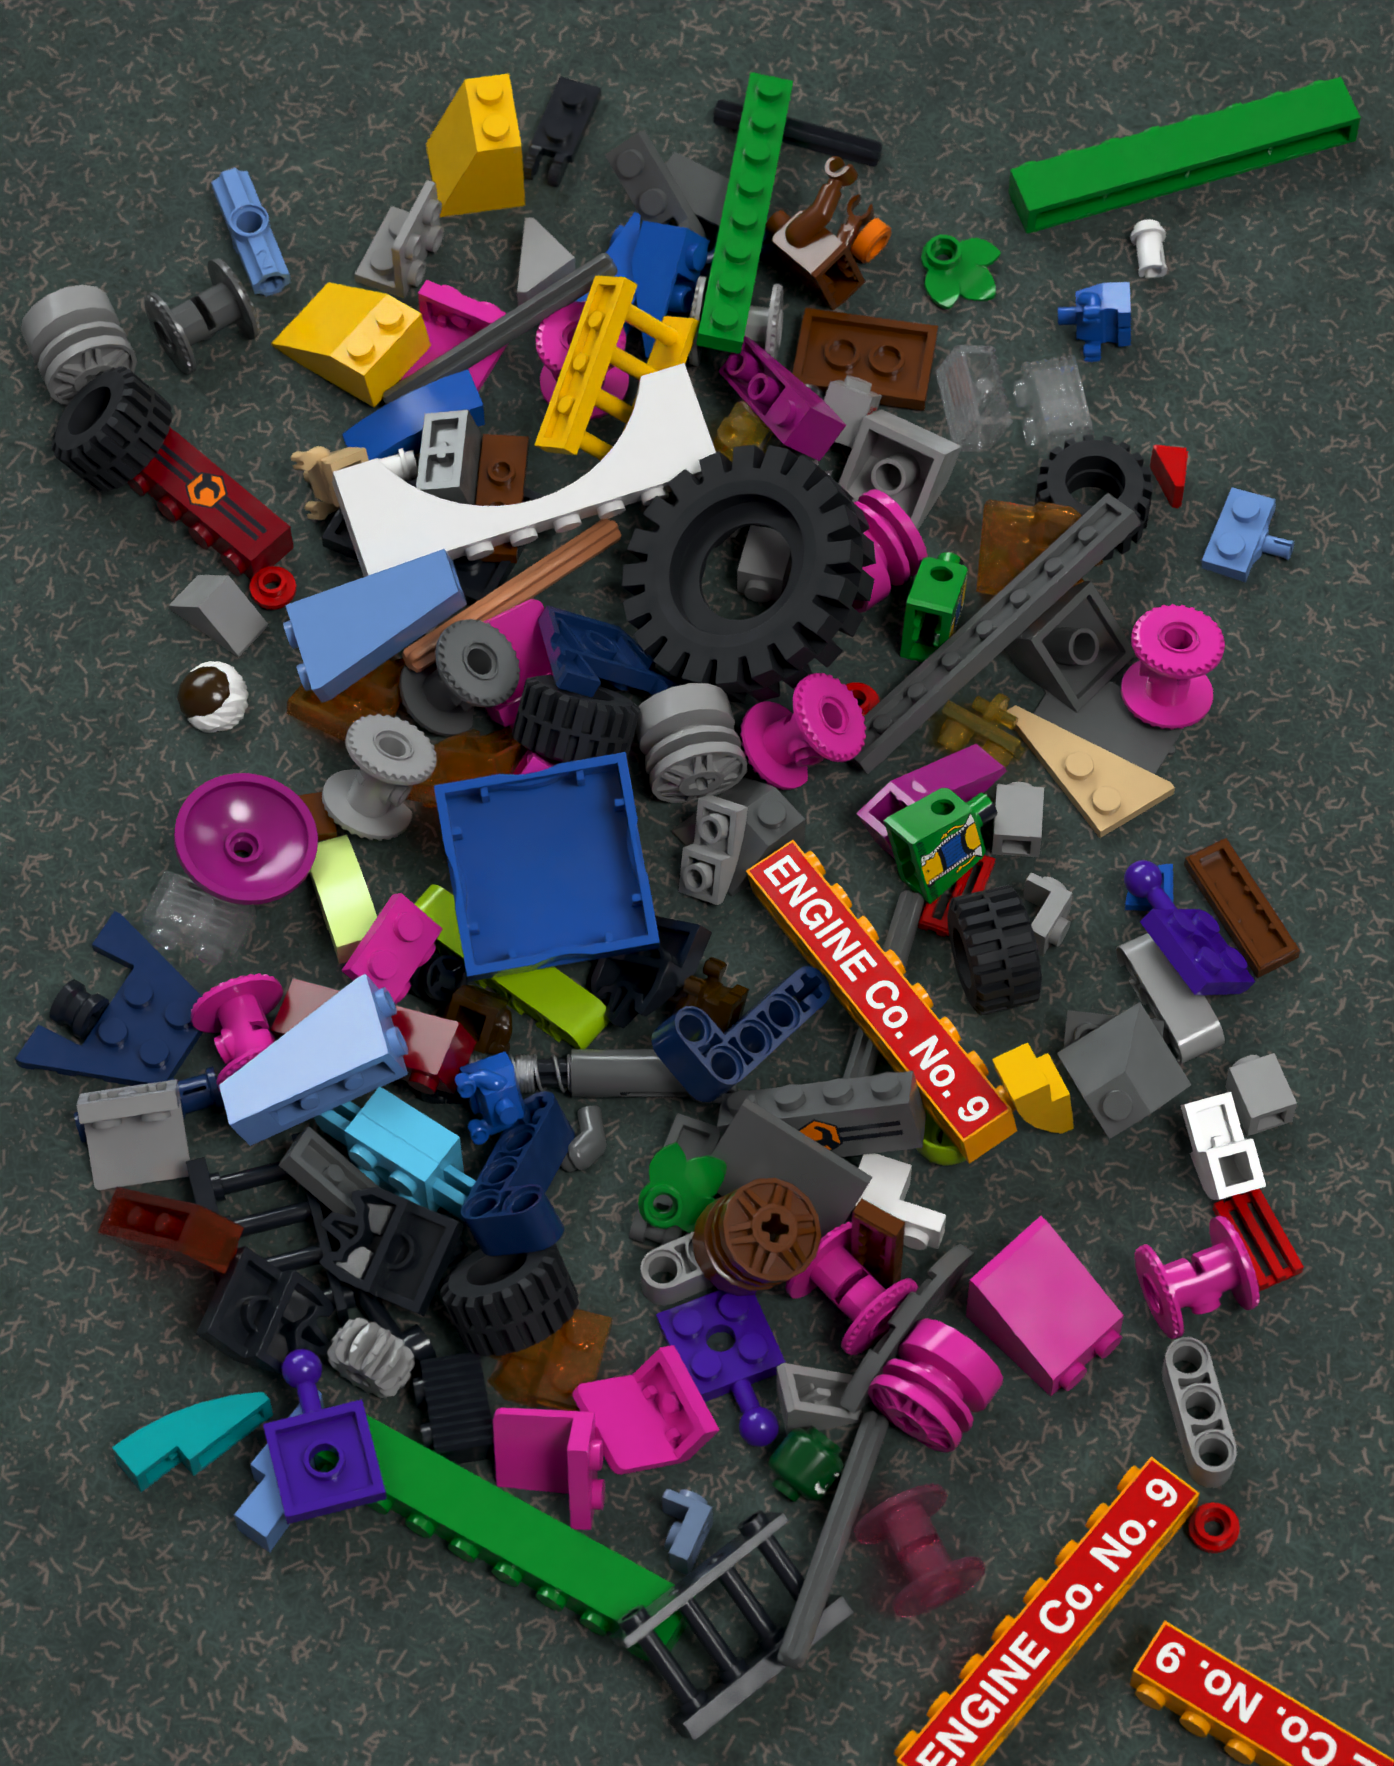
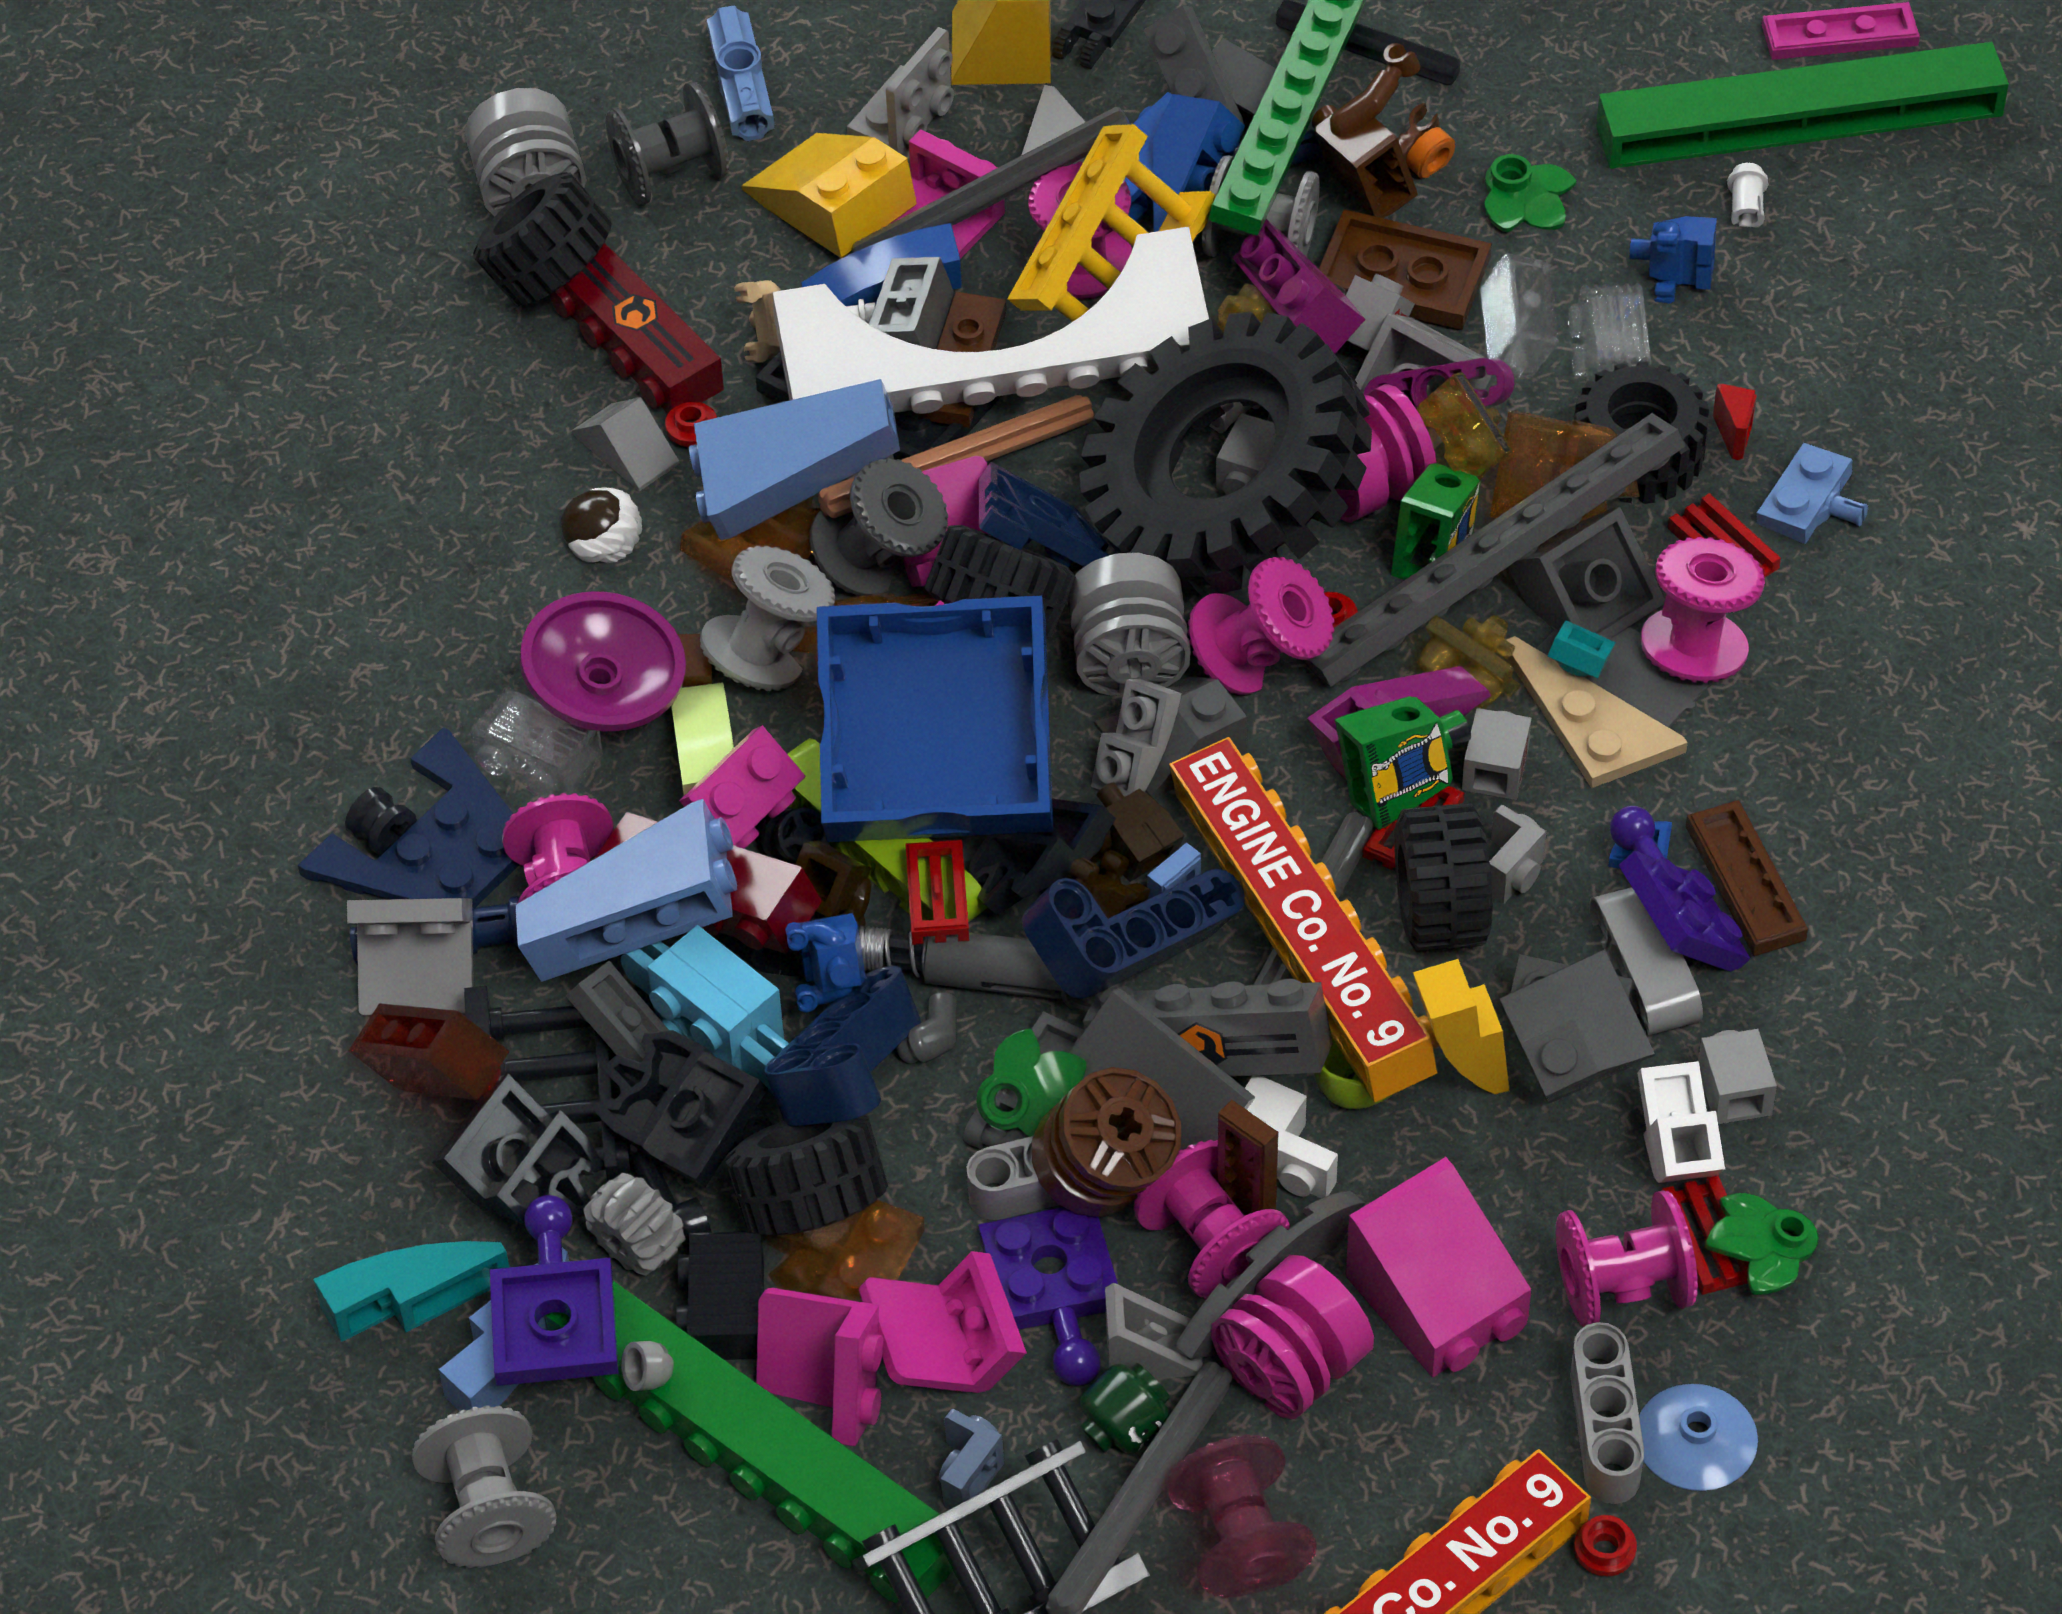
camera: 10 degrees right, 10 degrees down
(281, 1589) = (493, 1517): none -> light grey hose
(409, 1490) = (646, 1365): none -> light grey hinge
(579, 1052) = (939, 925): none -> red tile
(733, 931) = (1140, 832): none -> dark brown piece
(766, 973) = (1176, 869): none -> medium blue tile
(945, 463) = (1472, 369): none -> magenta beam
(948, 521) = (1465, 427): none -> clear yellow hips
(1074, 714) = (1580, 650): none -> teal plate
(1181, 573) = (1710, 506): none -> red tile
(1205, 72) = (1840, 30): none -> dark pink tile
(1270, 1440) = (1697, 1458): none -> medium blue dish
(1297, 1240) = (1756, 1235): none -> green plate

